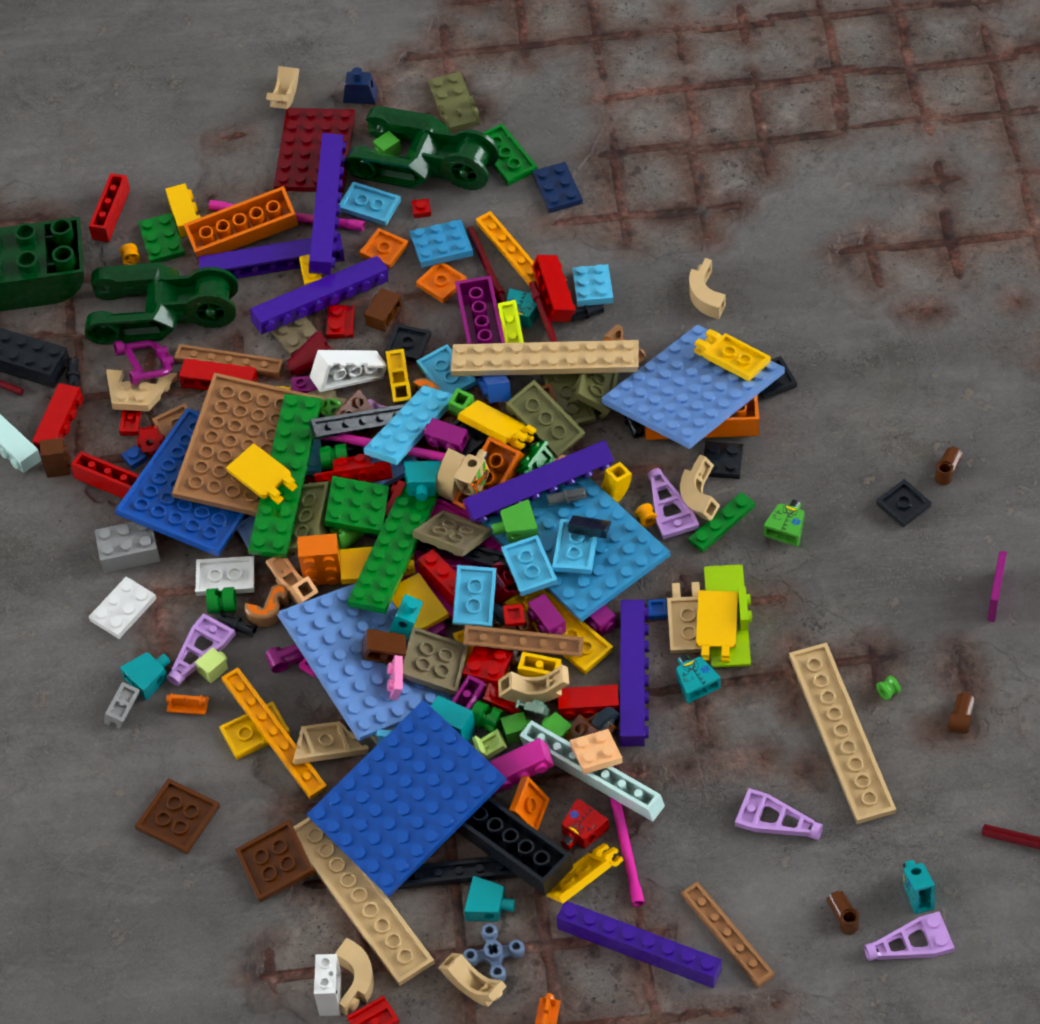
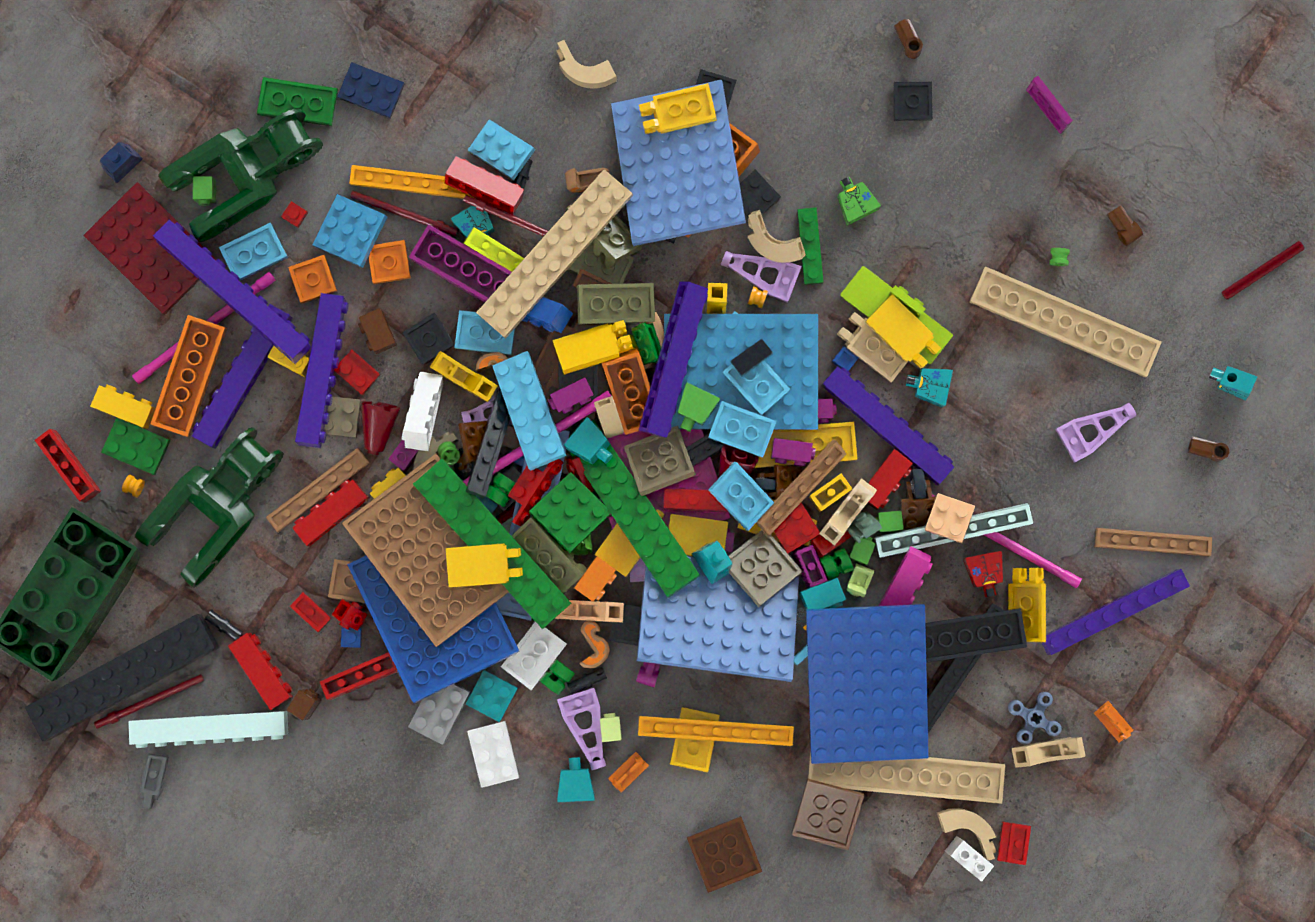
camera: 50 degrees left, 30 degrees up
(121, 705) = (590, 824): light grey hinge -> none
(136, 397) = (293, 593): tan wing -> none
(138, 374) = (262, 538): magenta bar -> none
(168, 574) = (491, 696): none -> teal plate
(285, 88) = (62, 221): tan arch -> none
(326, 742) = (755, 702): tan wing -> none
(382, 646) = (728, 599): reddish brown brick -> none
(395, 683) = (761, 611): bright pink plate -> none
(454, 102) = (201, 95): olive hinge -> none
(460, 401) = (545, 355): bright green brick -> none
(472, 473) = (628, 411): tan torso -> none
(486, 901) = (989, 688): teal torso -> none
(513, 615) = (779, 479): red plate -> none
(529, 802) = (940, 597): orange plate -> none
(567, 496) = (703, 349): dark grey axle -> none
(934, 931) = (1272, 400): lavender plate -> none

